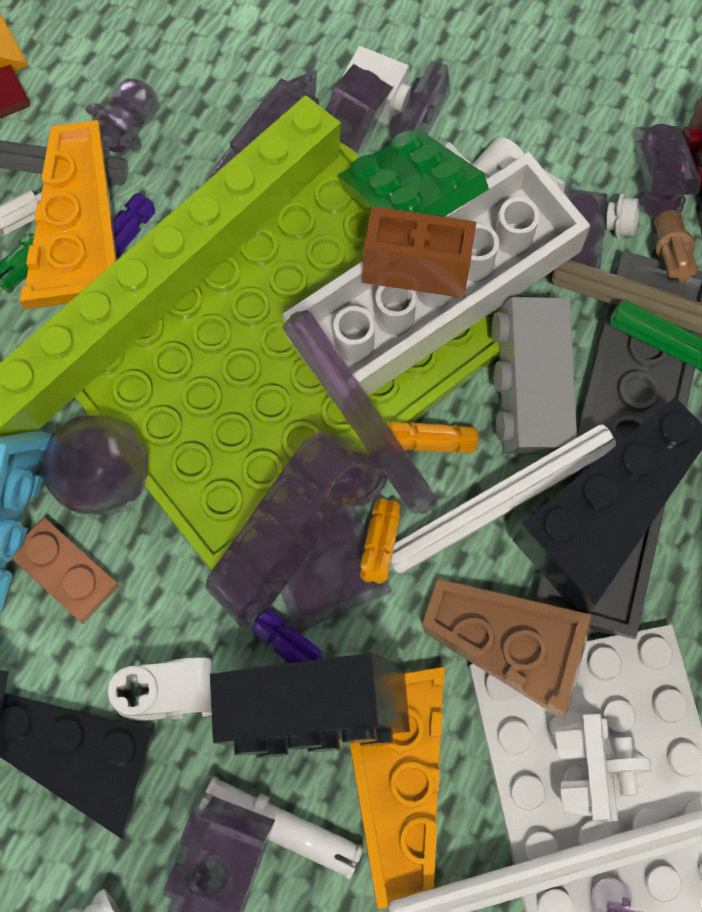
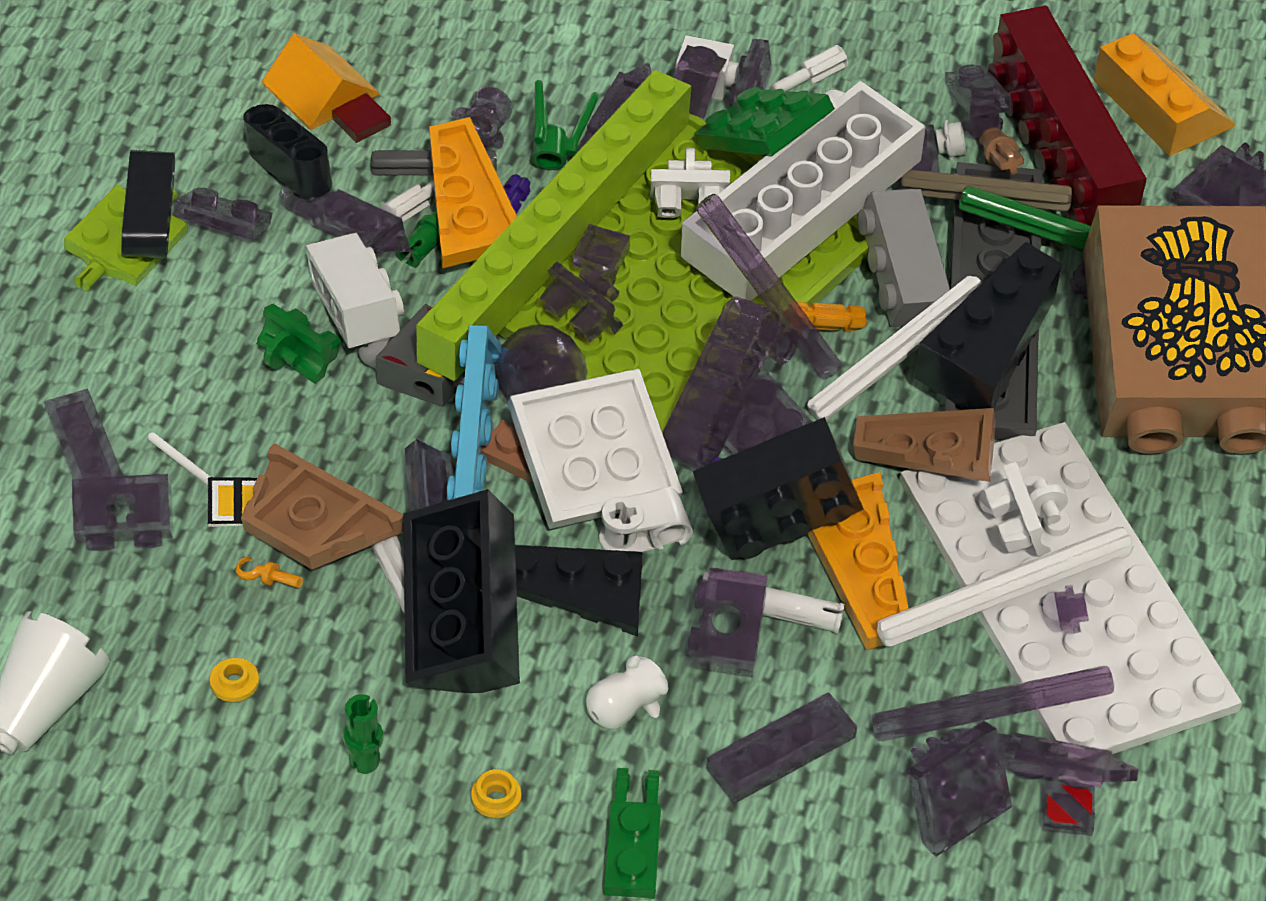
camera: 10 degrees left, 20 degrees down
(124, 588) = (591, 445): none -> white plate
(147, 369) = (595, 311): none -> hips
(184, 159) = (550, 141): none -> green plant
(198, 318) = (600, 248): none -> plate
(292, 246) = (686, 181): none -> white hips
(380, 541) = (802, 391): light orange axle -> none
(418, 252) = (788, 157): dark orange hinge -> none
(493, 102) = (815, 68): none -> white axle

